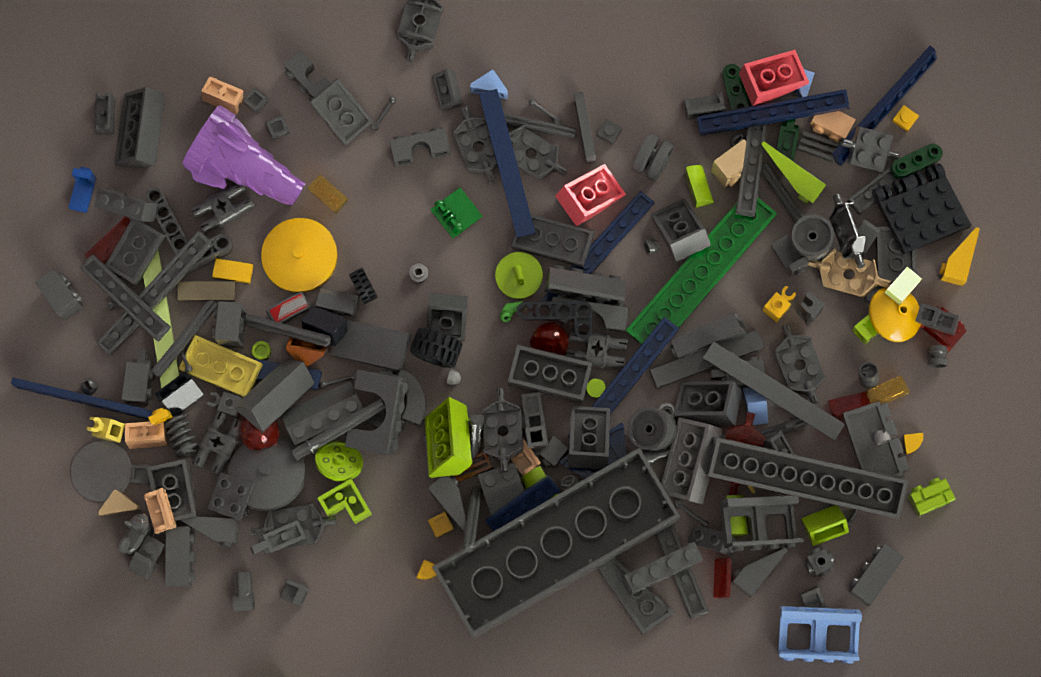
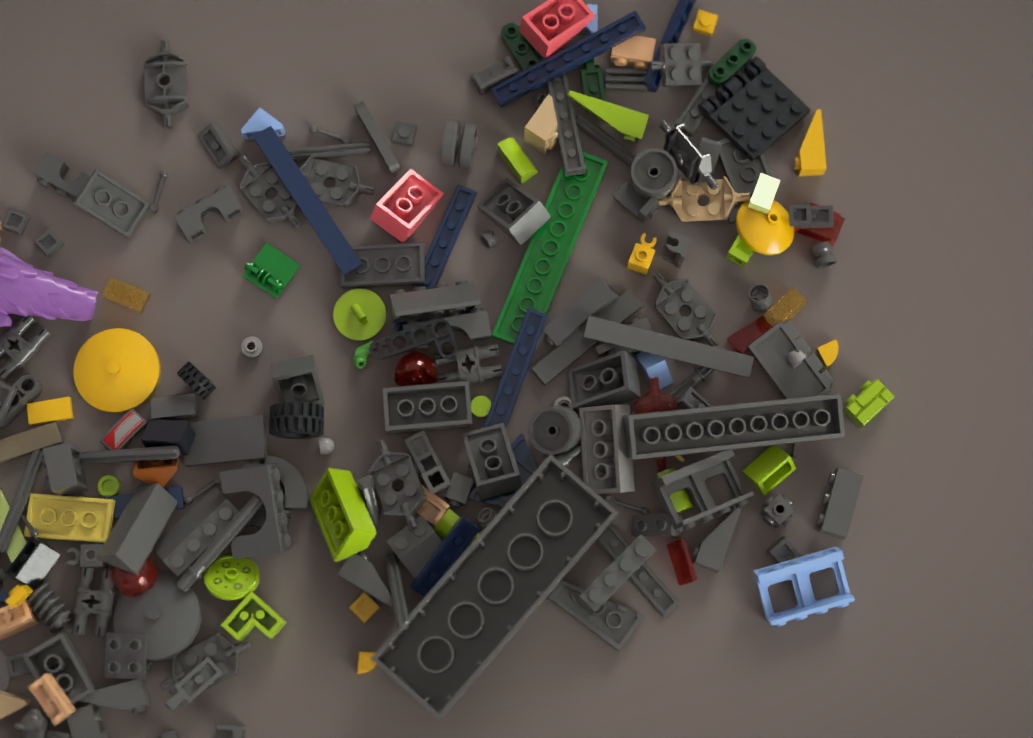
camera: 25 degrees left, 0 degrees up
(479, 471) = (390, 522): dark orange tile -> none

